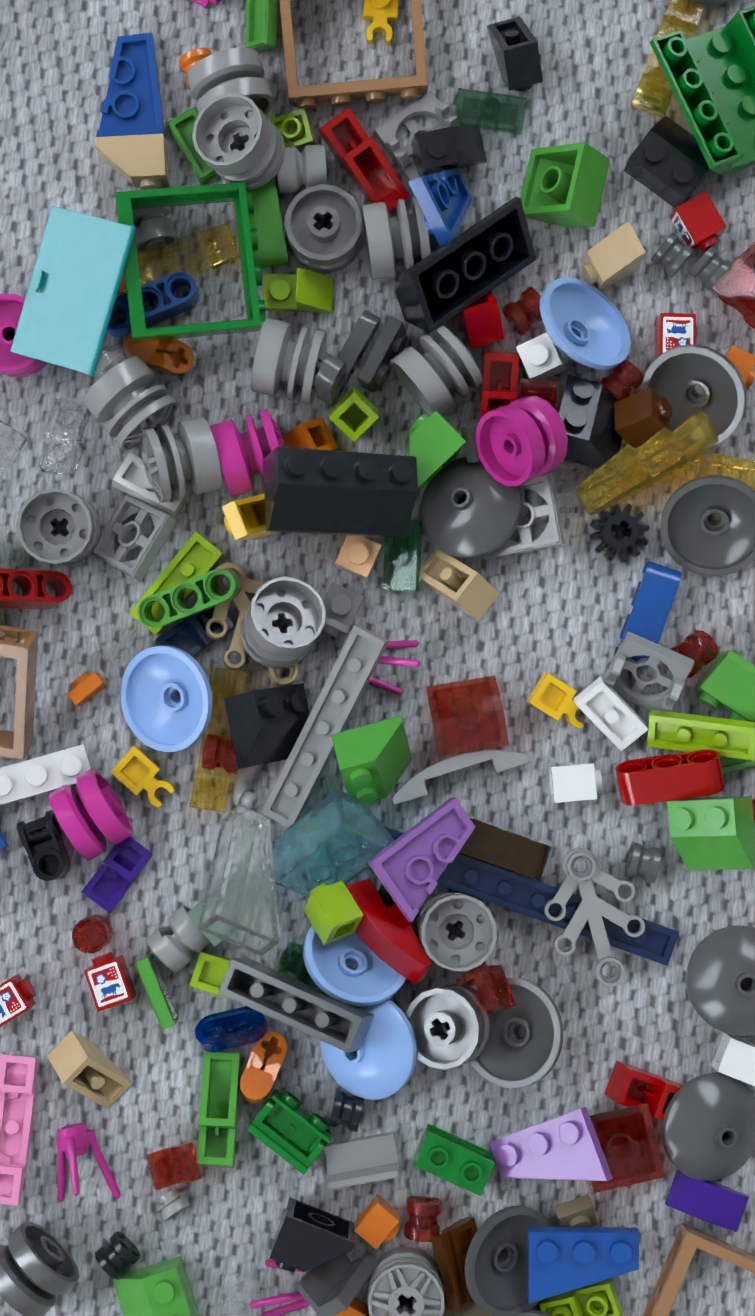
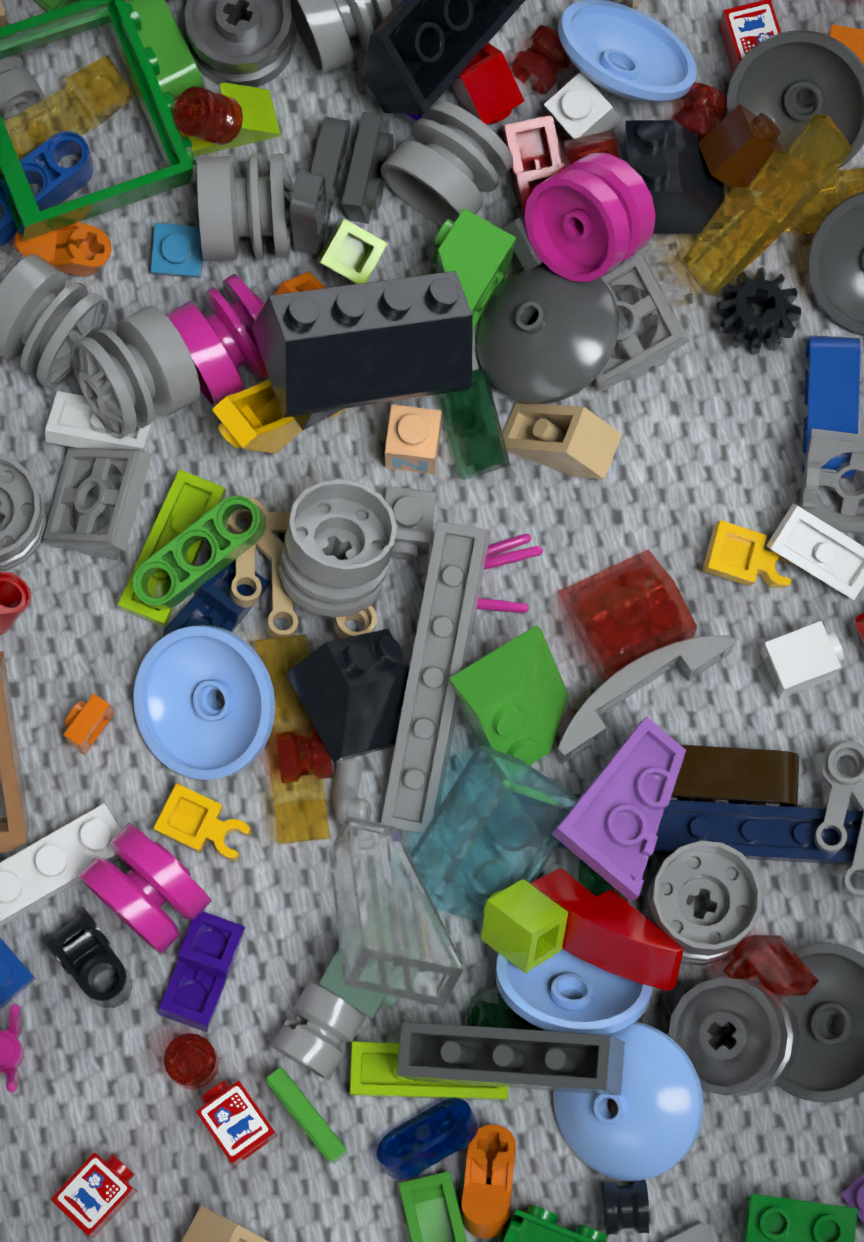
camera: 20 degrees left, 10 degrees down
(236, 376) = (177, 251): none -> dark azure plate
(281, 291) = (208, 115): none -> clear red wheel

